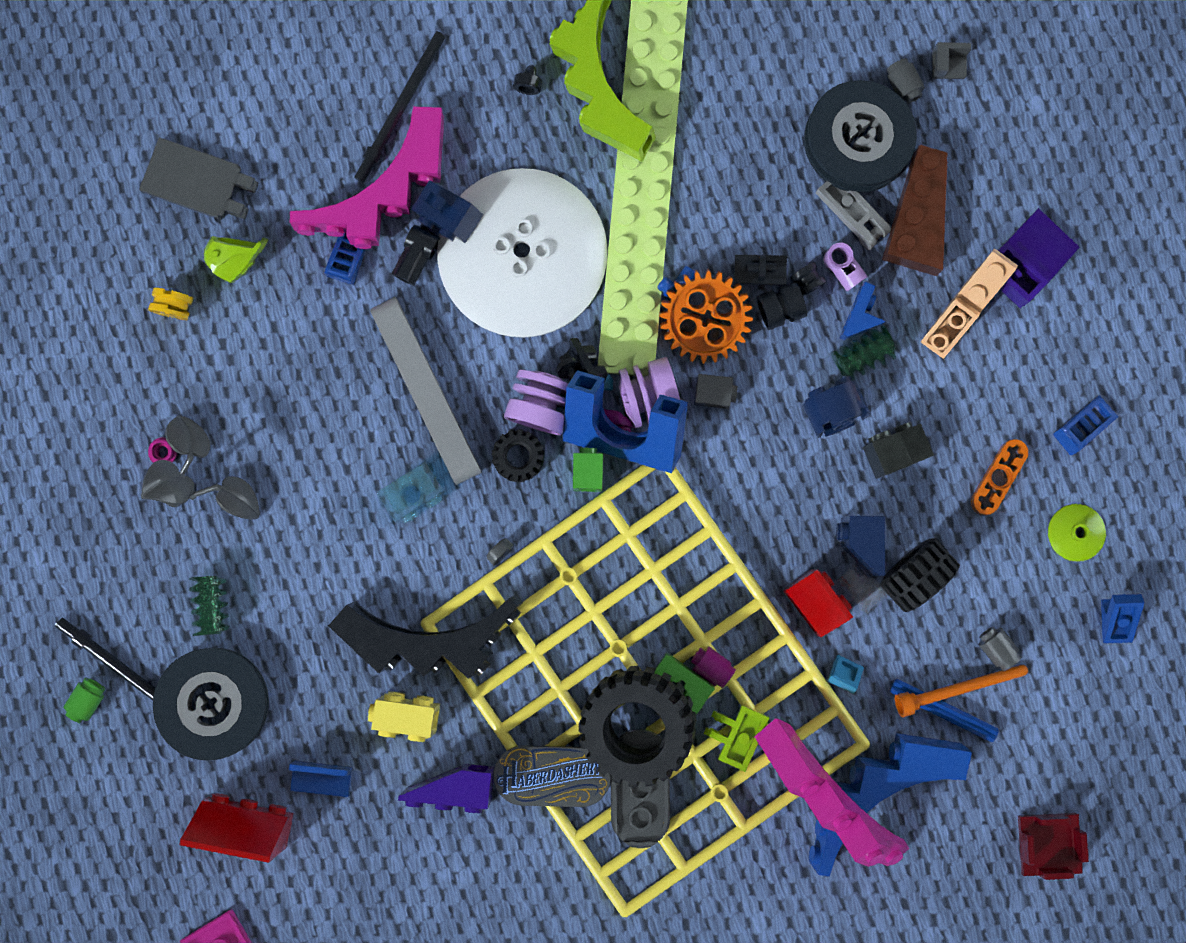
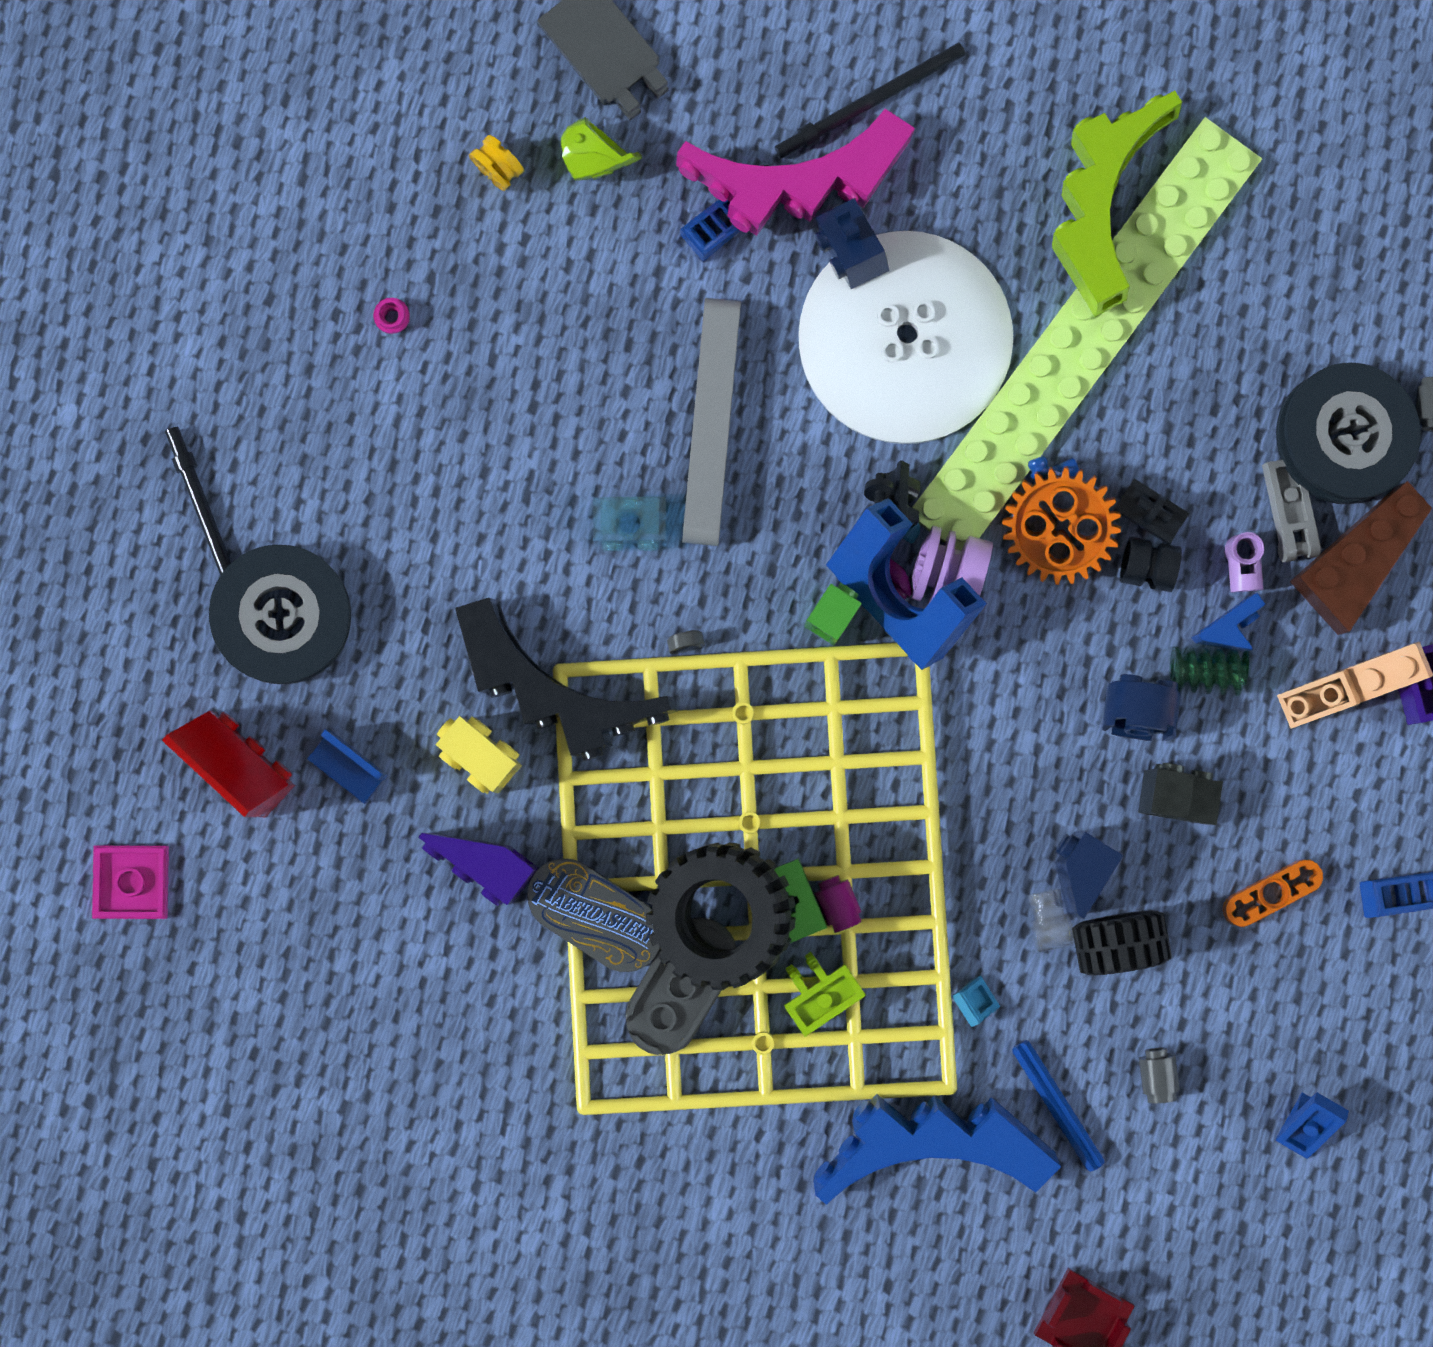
camera: 25 degrees right, 0 degrees up
(84, 700) = (148, 528): bright green brick -> none
(168, 485) = (381, 354): dark grey plant -> none
(209, 605) = (341, 509): clear green piece -> none
(418, 250) = (794, 267): black piece -> none
(513, 438) = (773, 530): black tyre -> none
(527, 82) = (1024, 156): black tile -> none
(539, 402) = (826, 508): lavender wheel -> none
(715, 391) = (1022, 612): dark grey brick -> none
(808, 279) = (1197, 553): black wheel -> none
(818, 602) = (994, 905): red slope -> none
(834, 809) = (875, 1125): dark pink arch -> none
(909, 703) = (1024, 1073): orange piece -> none
(1063, 536) = (1302, 1004): lime dish -> none

